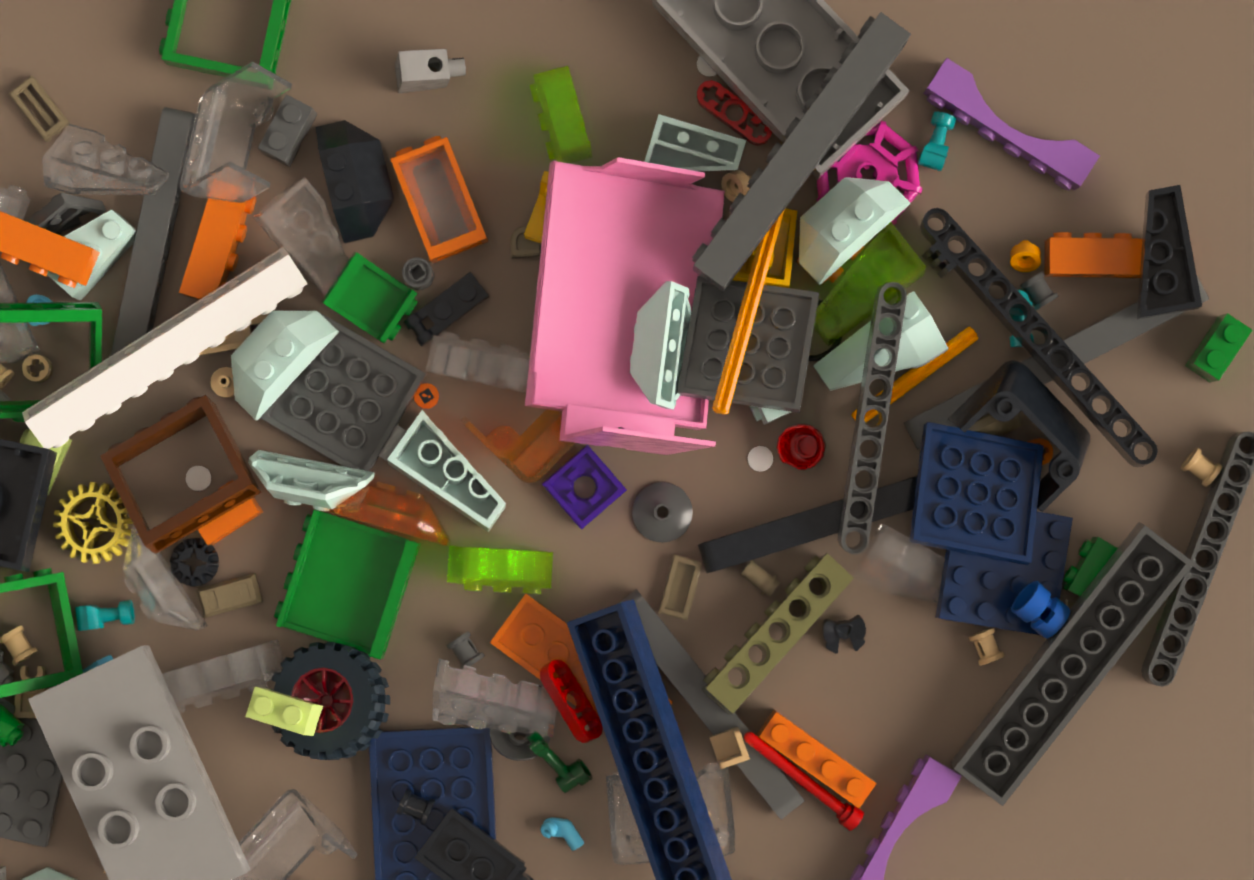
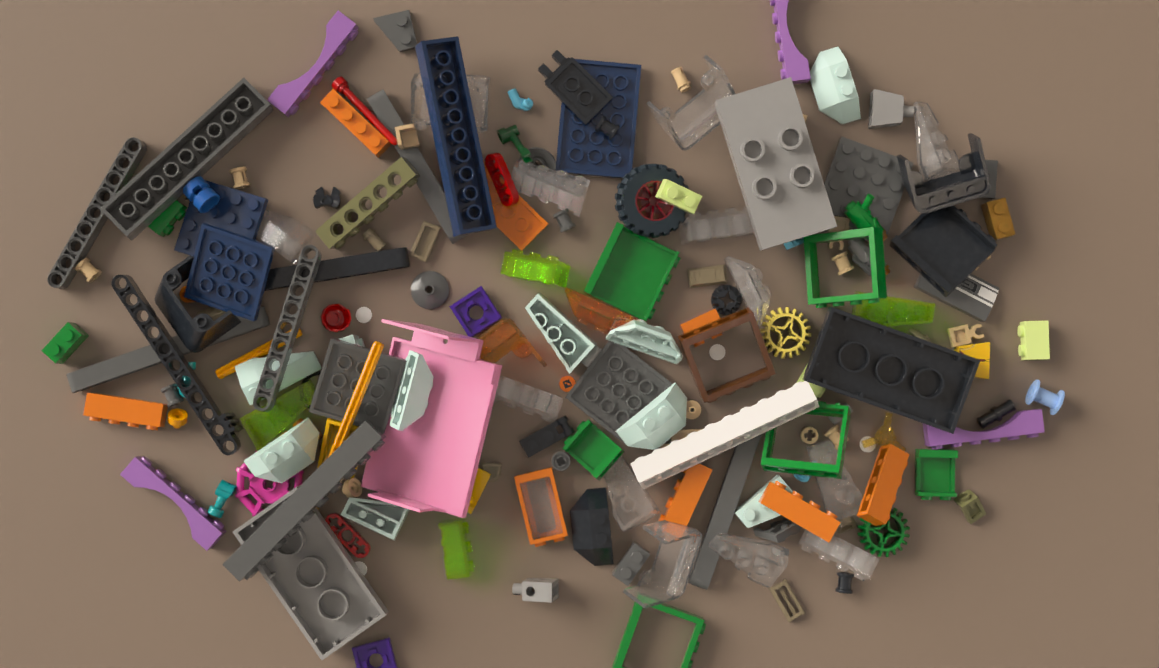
camera: 170 degrees left, 0 degrees up
(94, 617) = (794, 274): teal leg -> none
(1167, 261) = (86, 403): black wedge -> none

